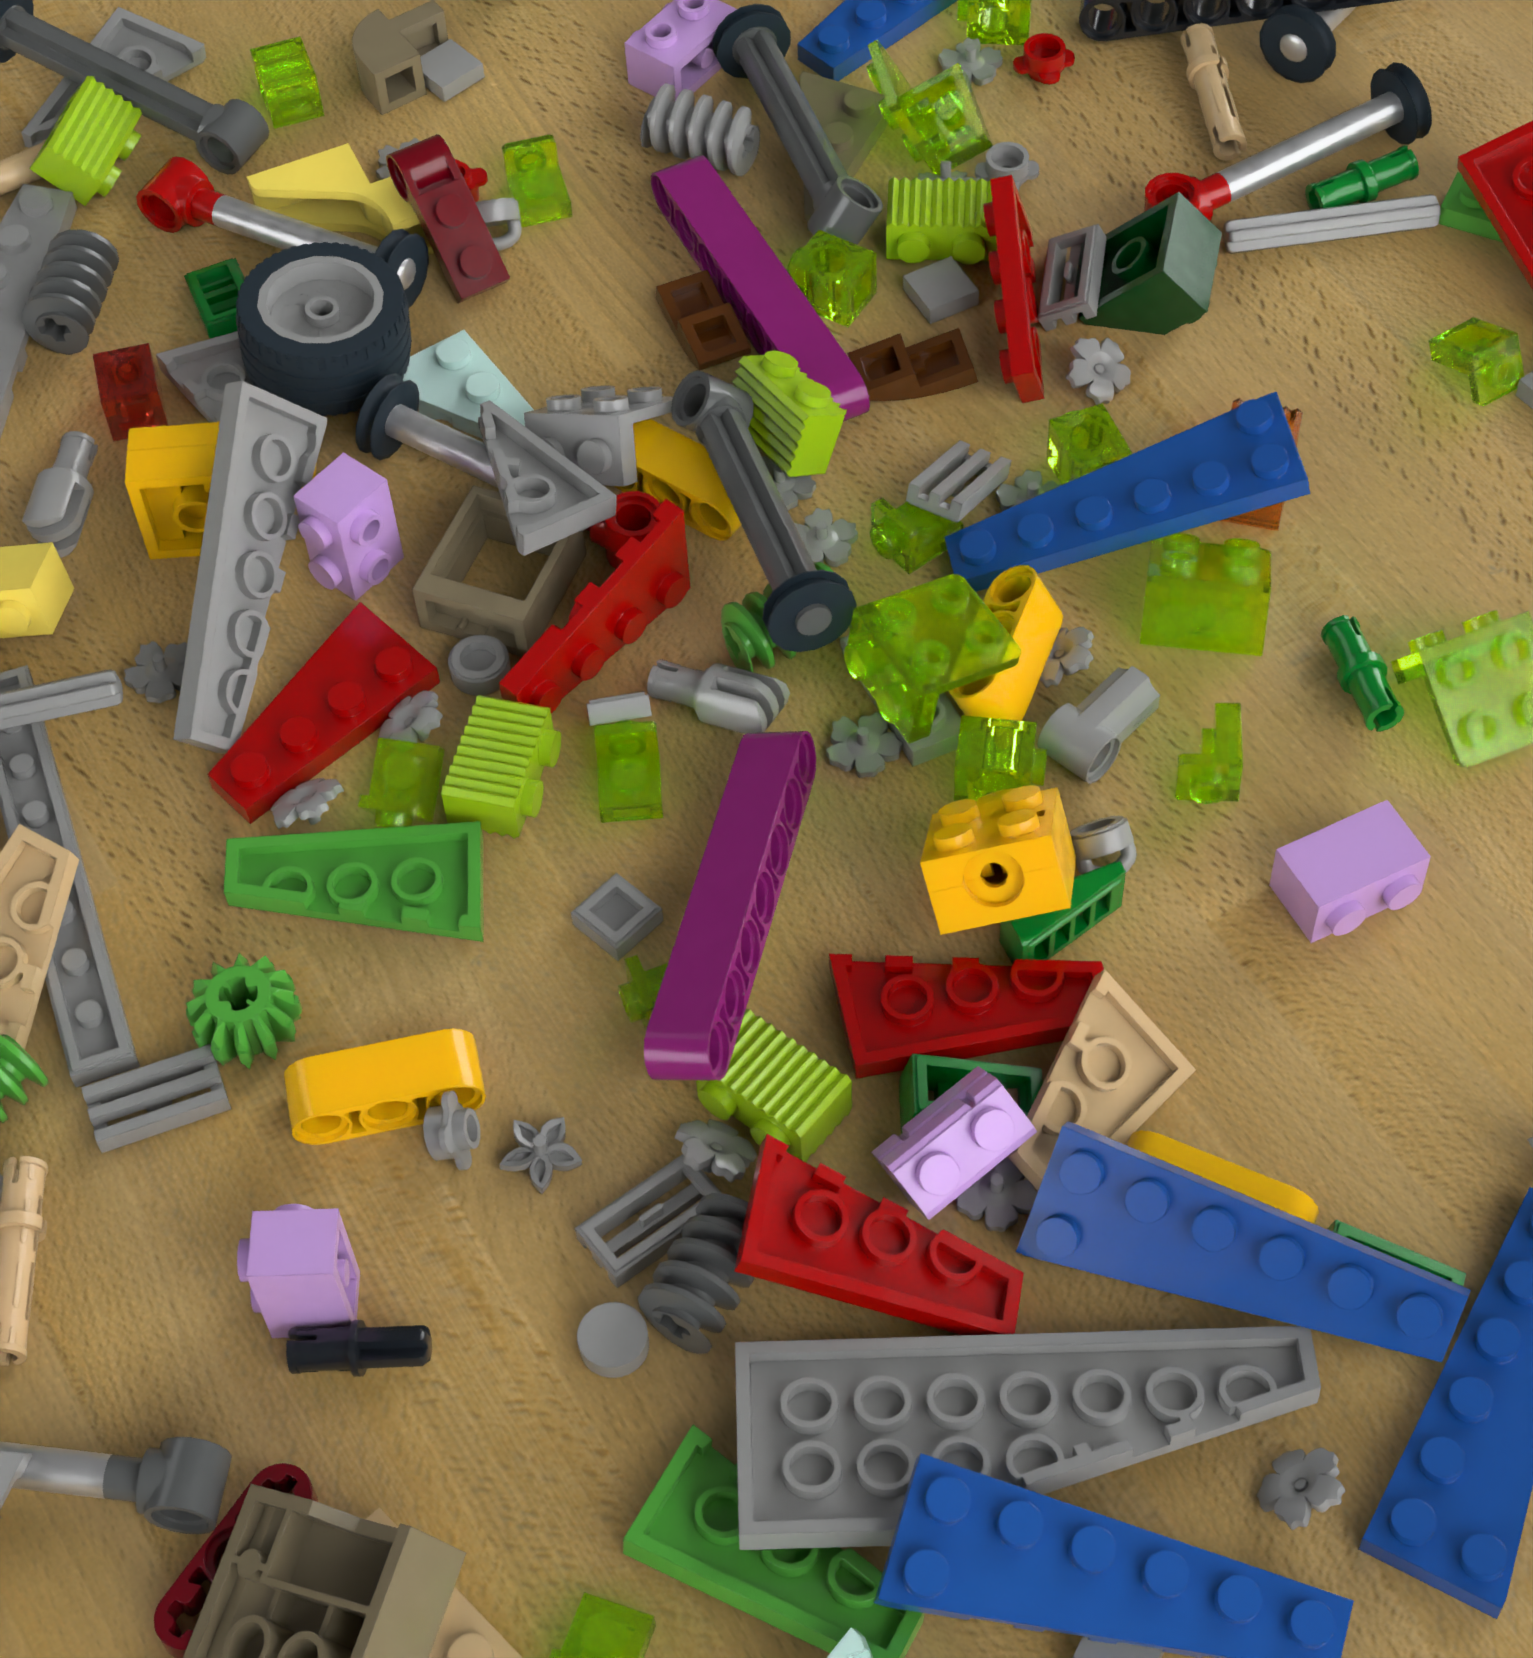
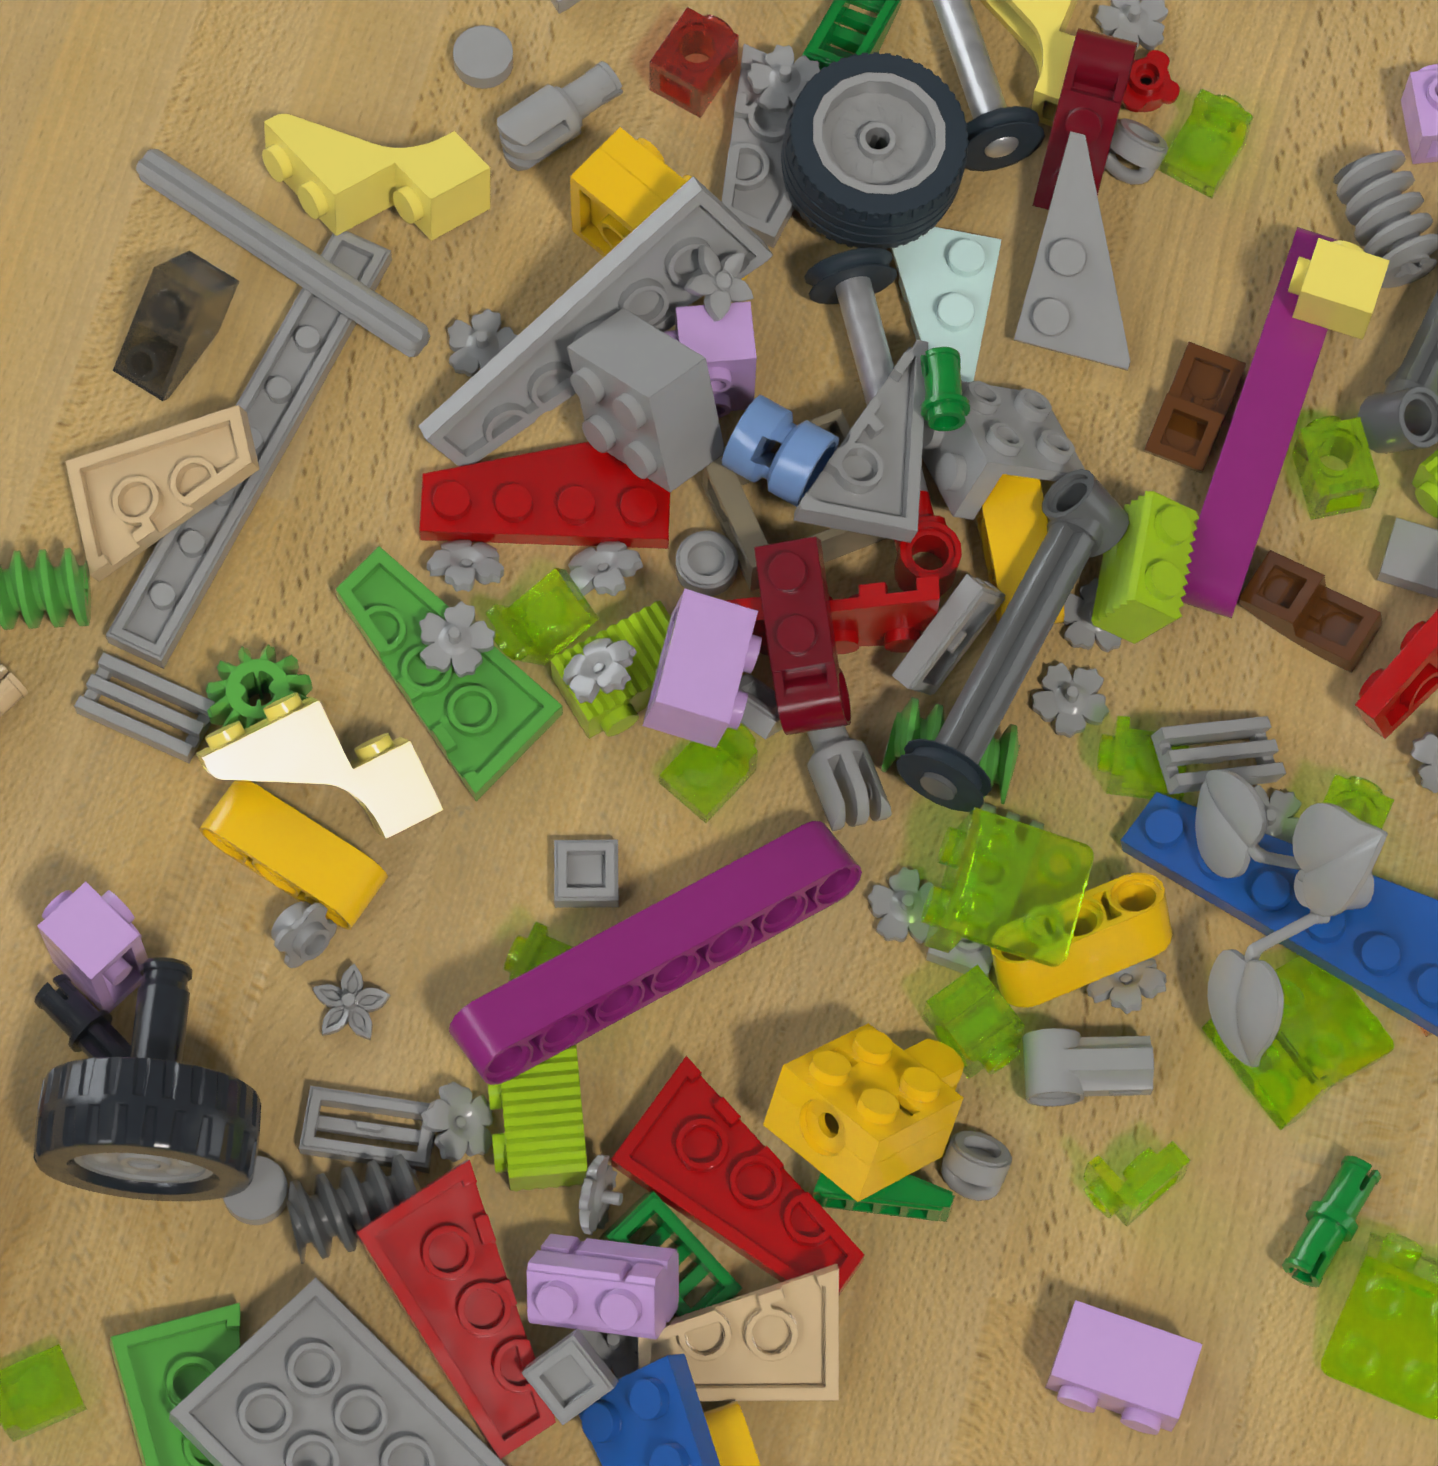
camera: 40 degrees right, 15 degrees up
(209, 349) = (781, 78): none -> light grey plant
(310, 453) = (719, 282): none -> light grey plant
(320, 991) = (302, 747): none -> arch
(332, 572) = (646, 400): none -> light grey brick
(354, 847) = (455, 640): none -> light grey plant
(485, 1336) = (148, 1119): none -> black wheel
(487, 522) = (797, 463): none -> medium blue wheel
(488, 758) = (599, 668): none -> light grey plant
(544, 314) = (1072, 286): none -> light grey wing
(546, 413) = (944, 400): none -> green pin
(564, 690) = (702, 669): none -> lavender brick
(611, 618) = (801, 637): none -> dark red plate
(704, 550) = (949, 635): none -> light grey tile
(724, 166) = (1338, 287): none -> light yellow brick
(873, 1096) = (598, 1195): none -> light grey plant
(1003, 1221) = (570, 1376): none -> light grey tile
(1146, 395) = (1334, 875): none -> light grey plant

